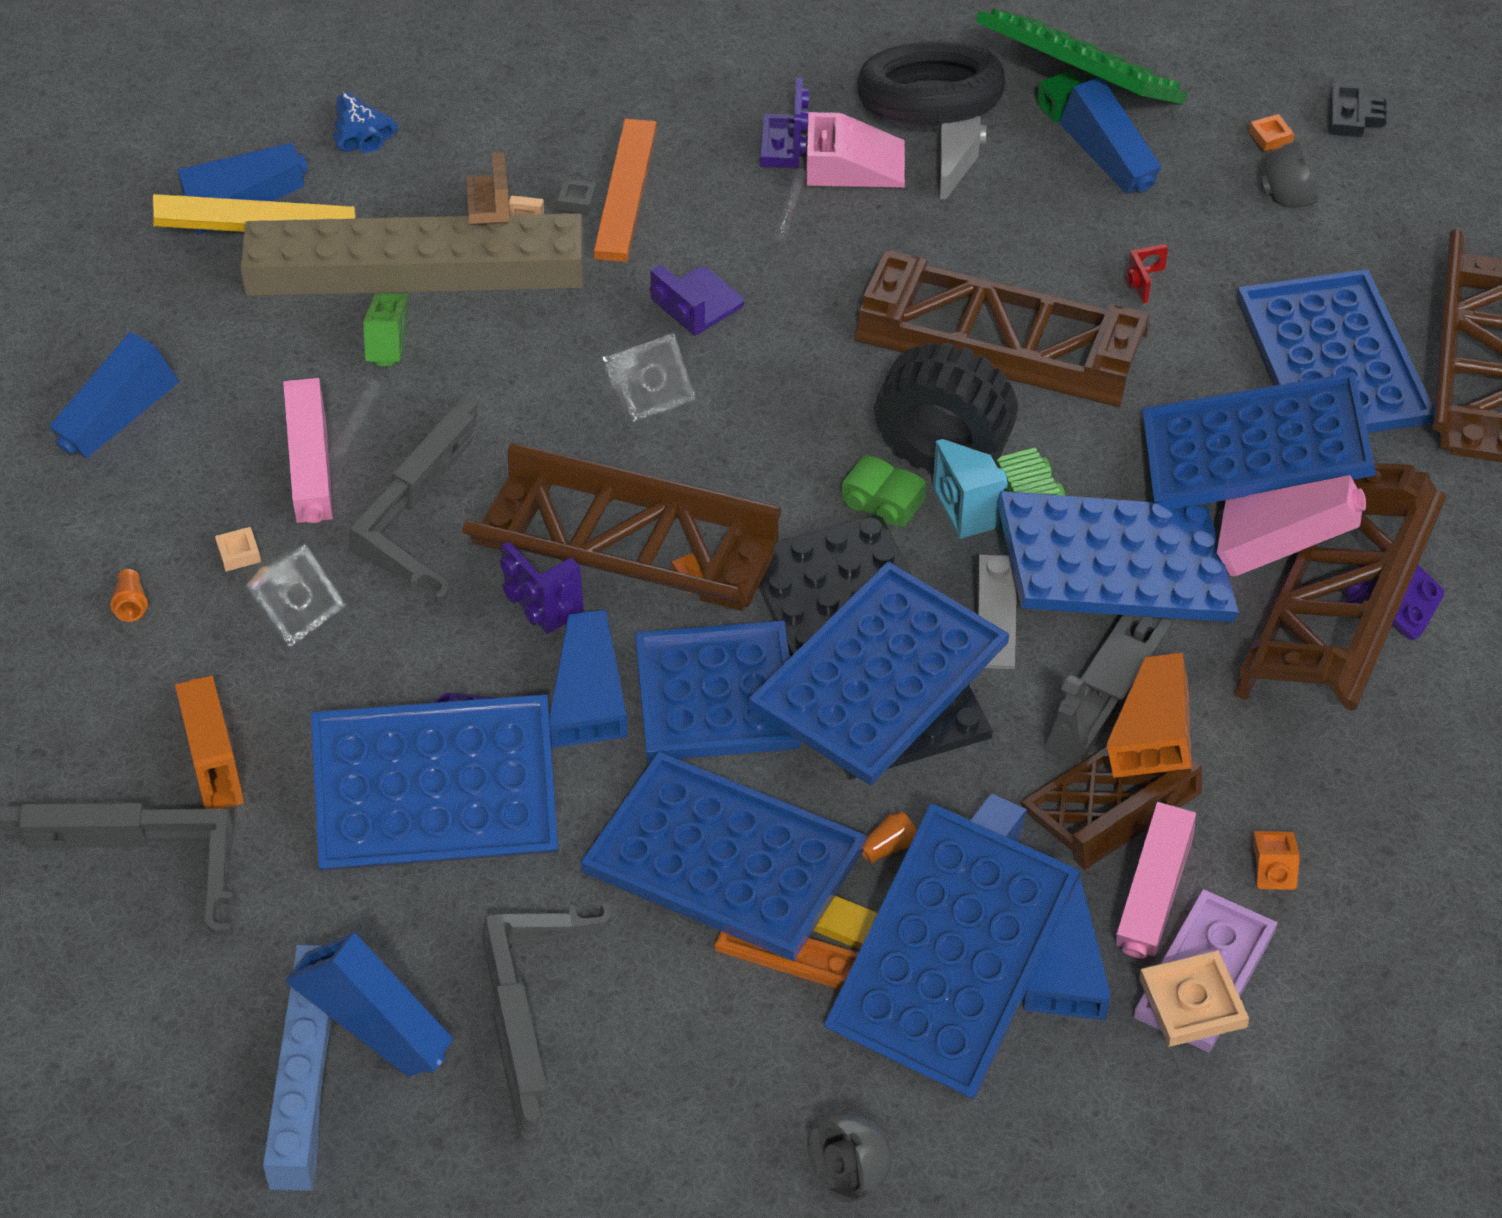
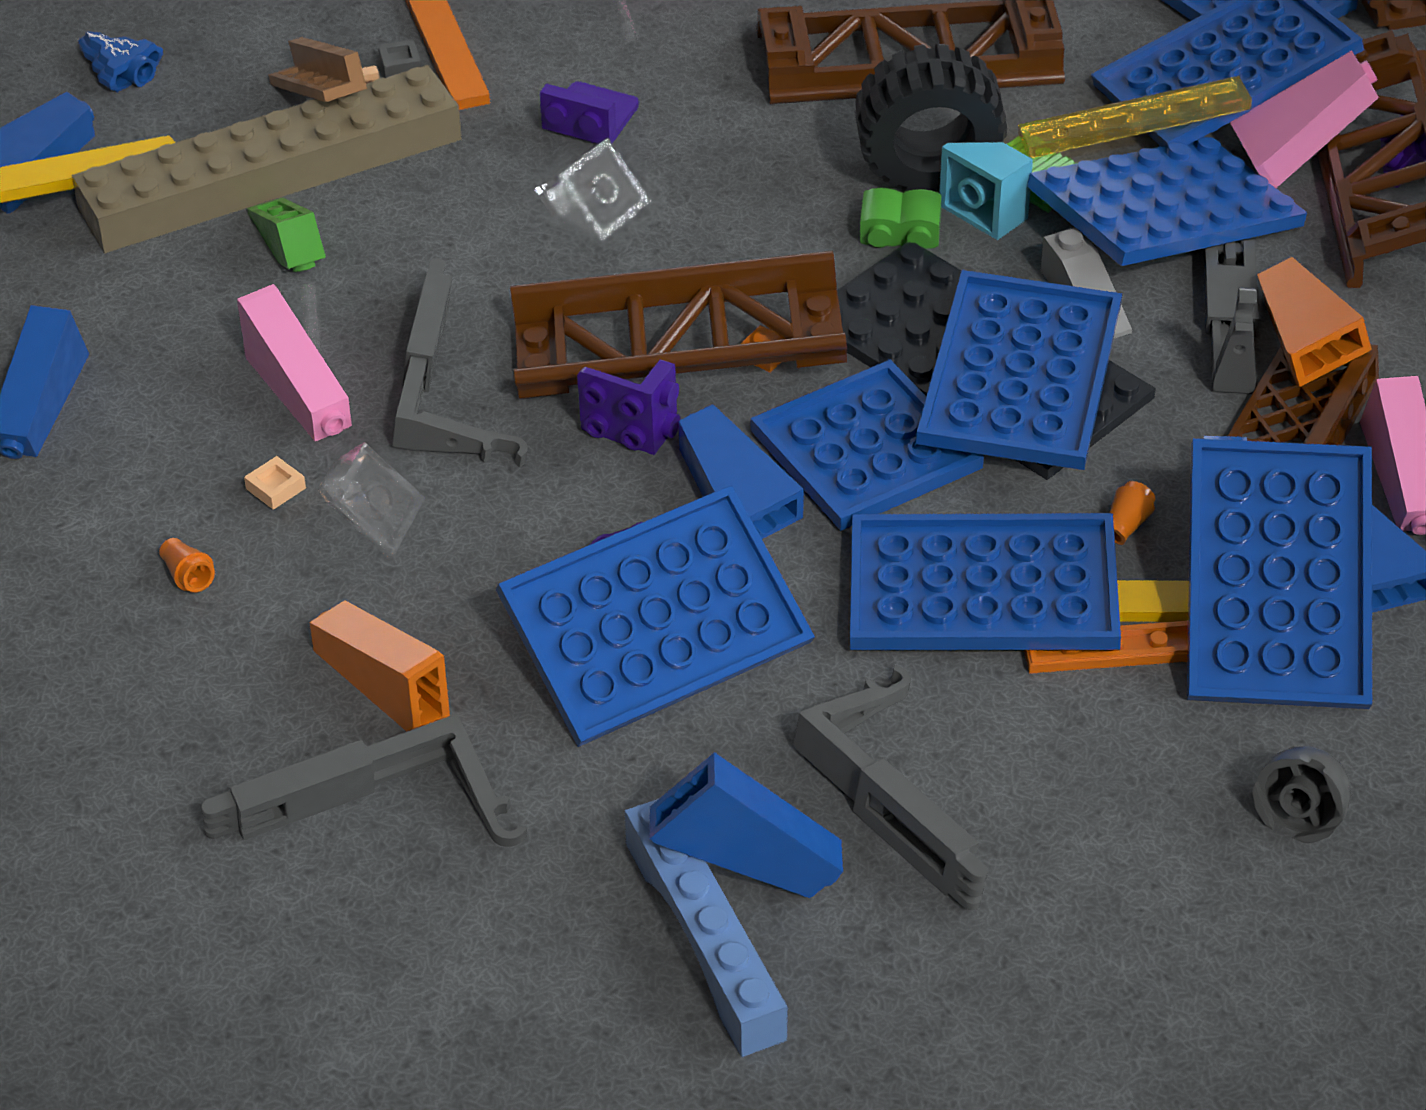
camera: 25 degrees left, 5 degrees down
(1133, 467) = (1134, 116): none -> clear yellow tile

